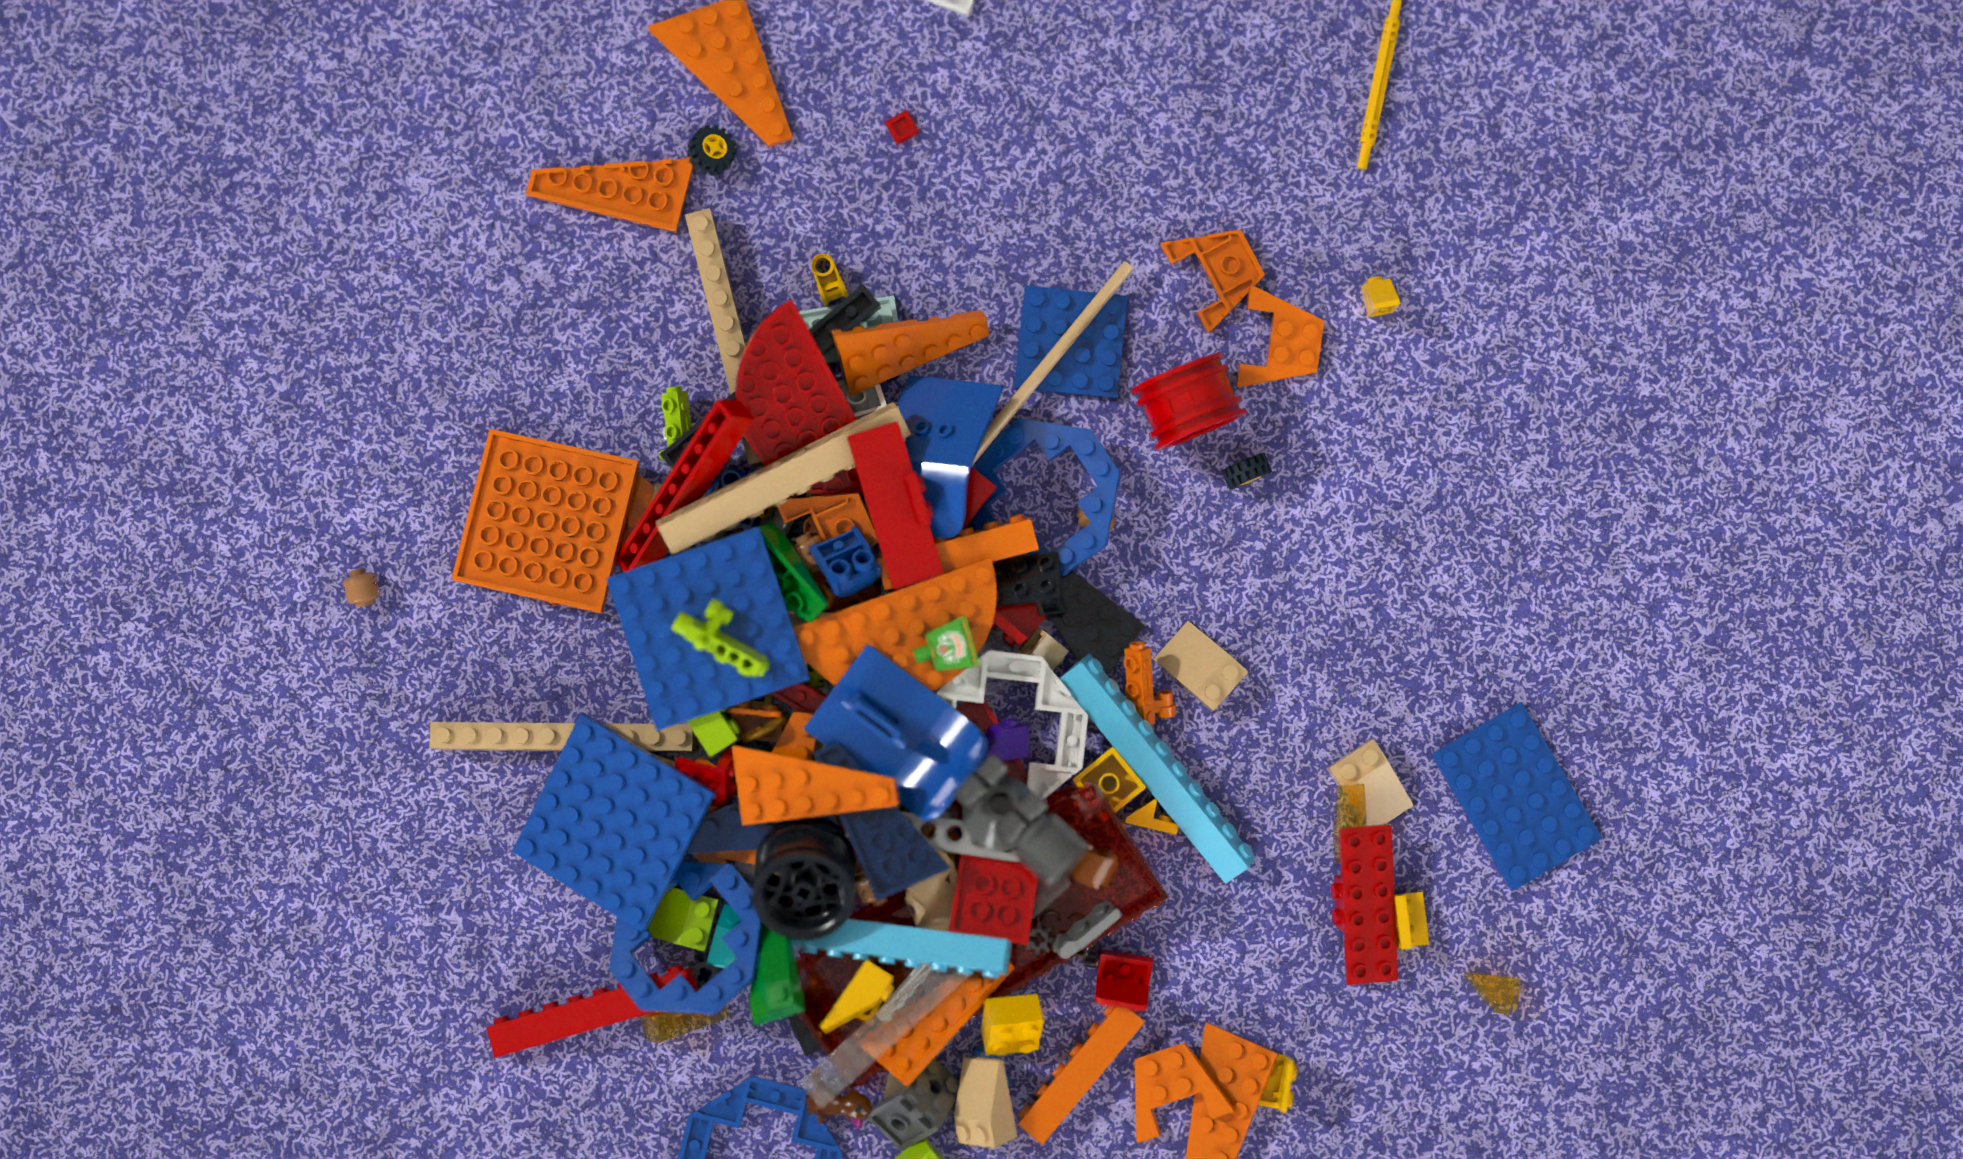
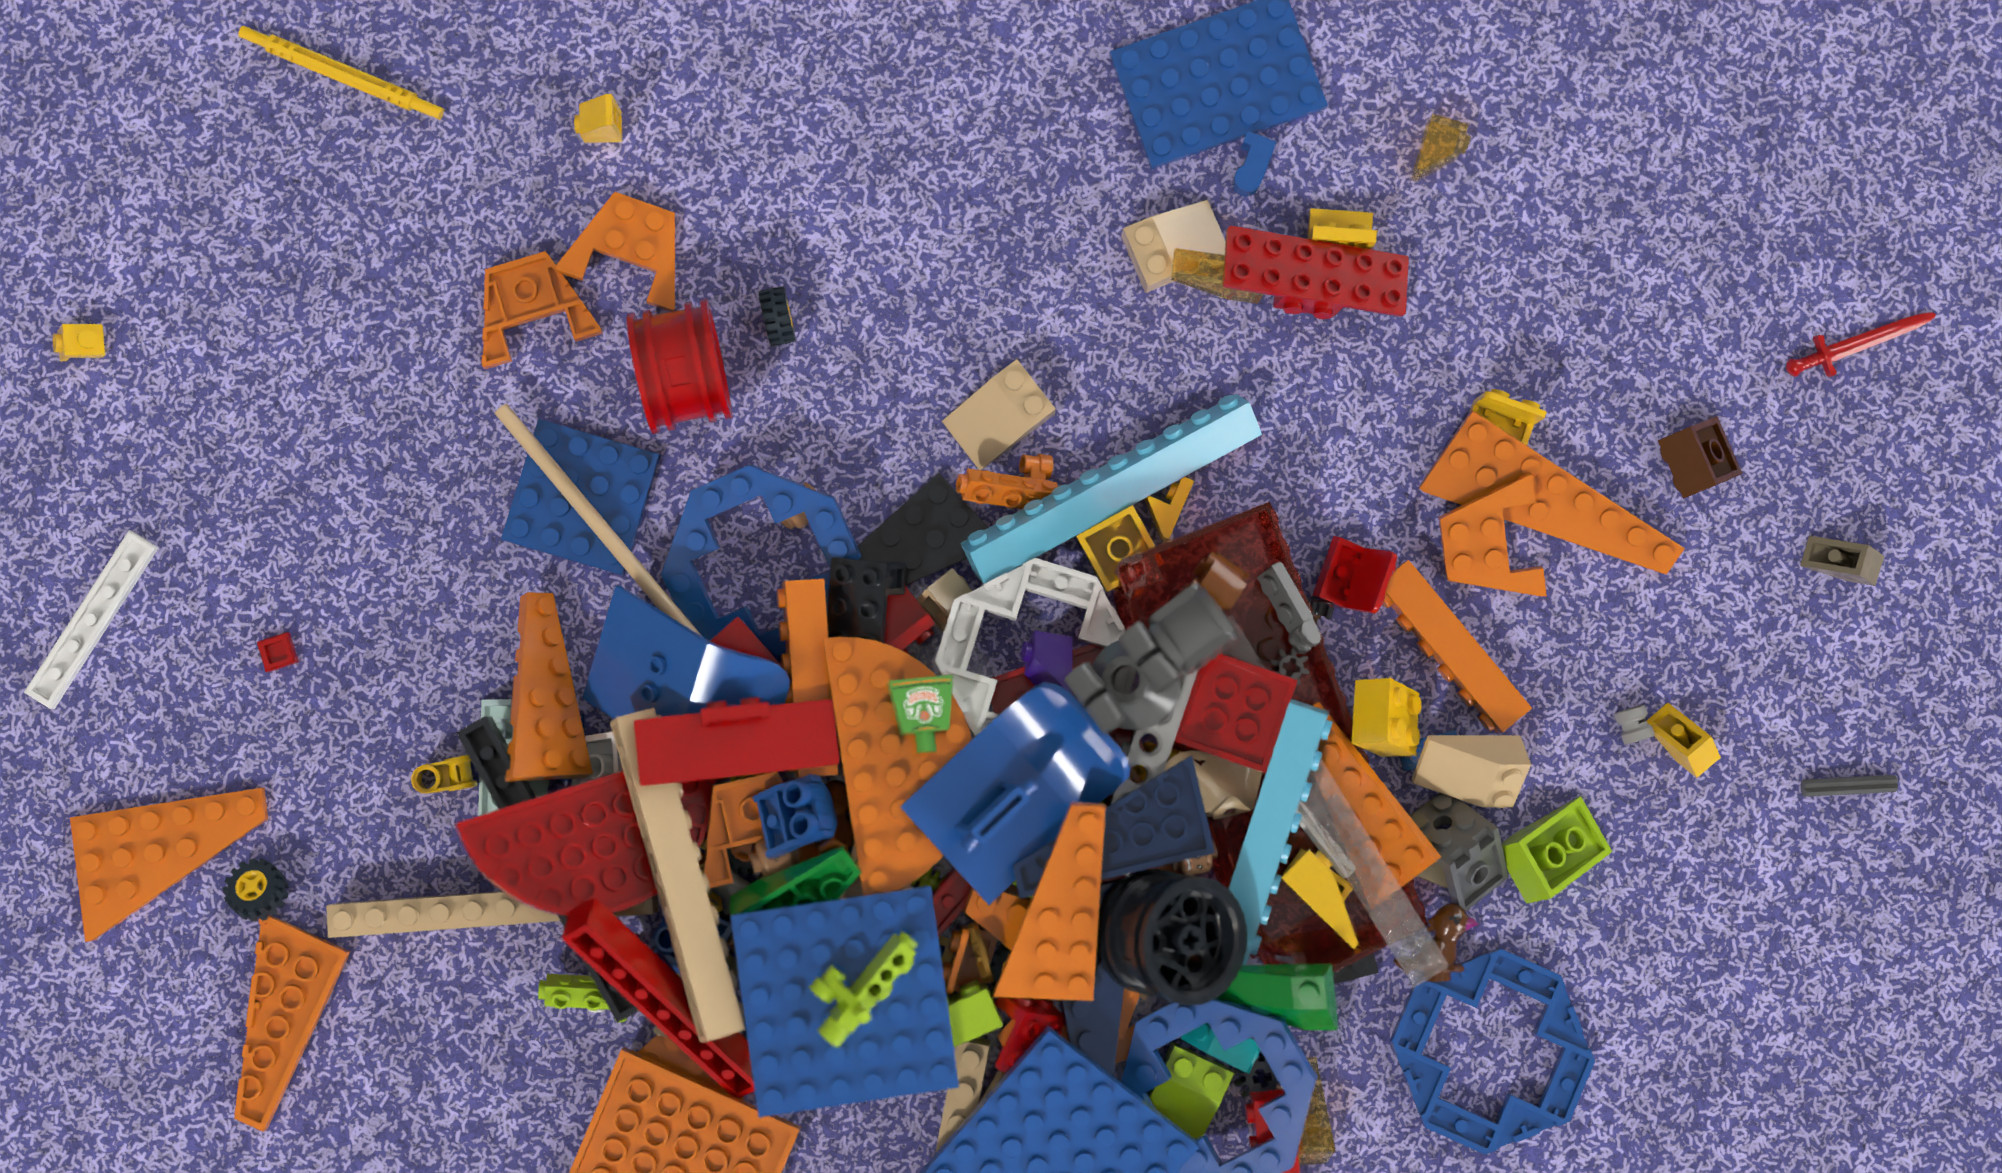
camera: 85 degrees left, 0 degrees up
(1439, 836) = (1250, 174): none -> blue leg

